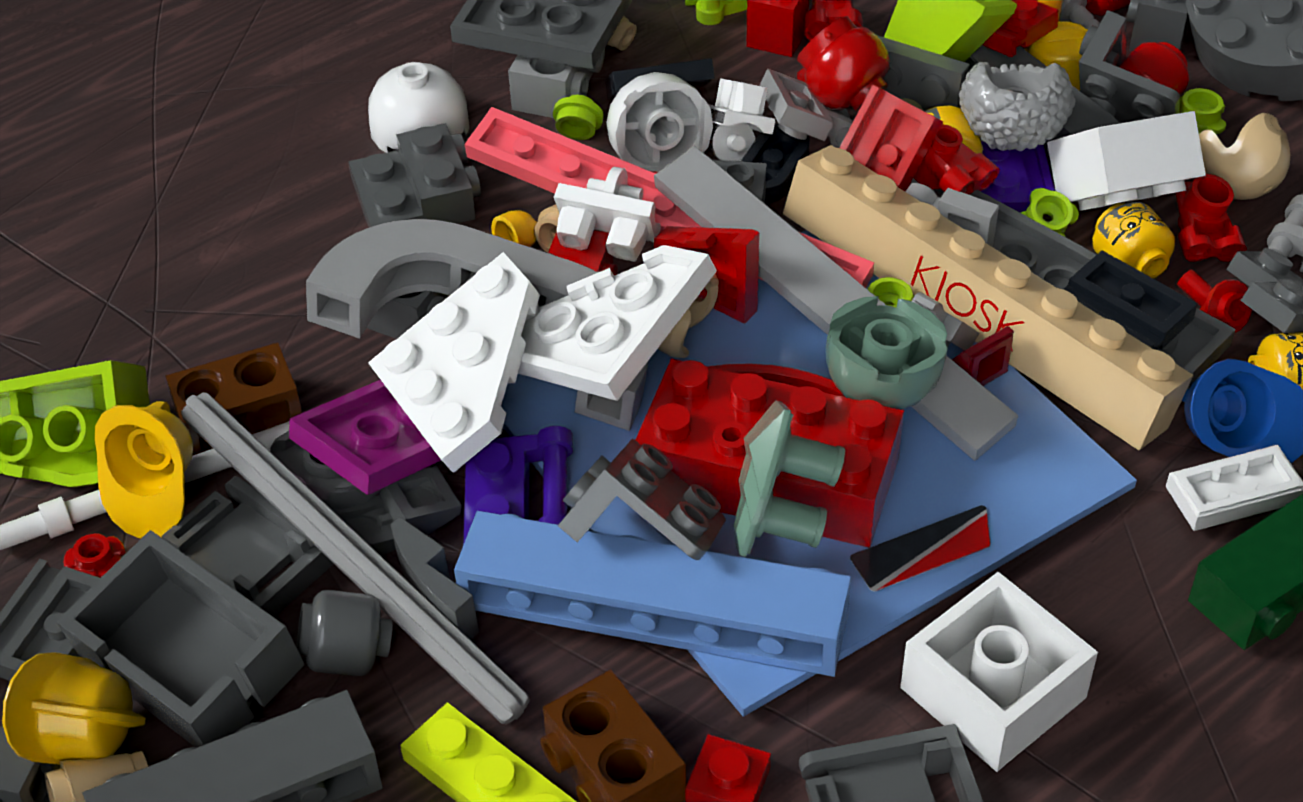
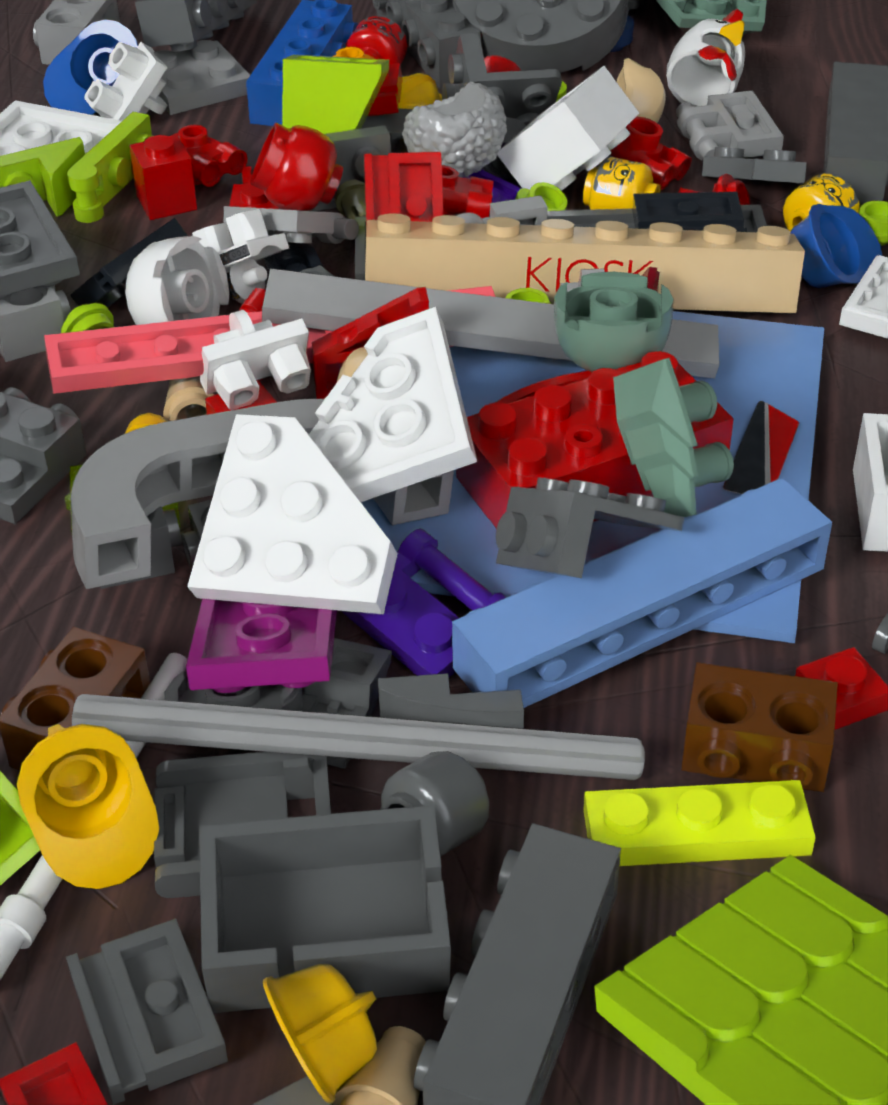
camera: 45 degrees left, 5 degrees down
(94, 554) = (103, 907): red plate -> none

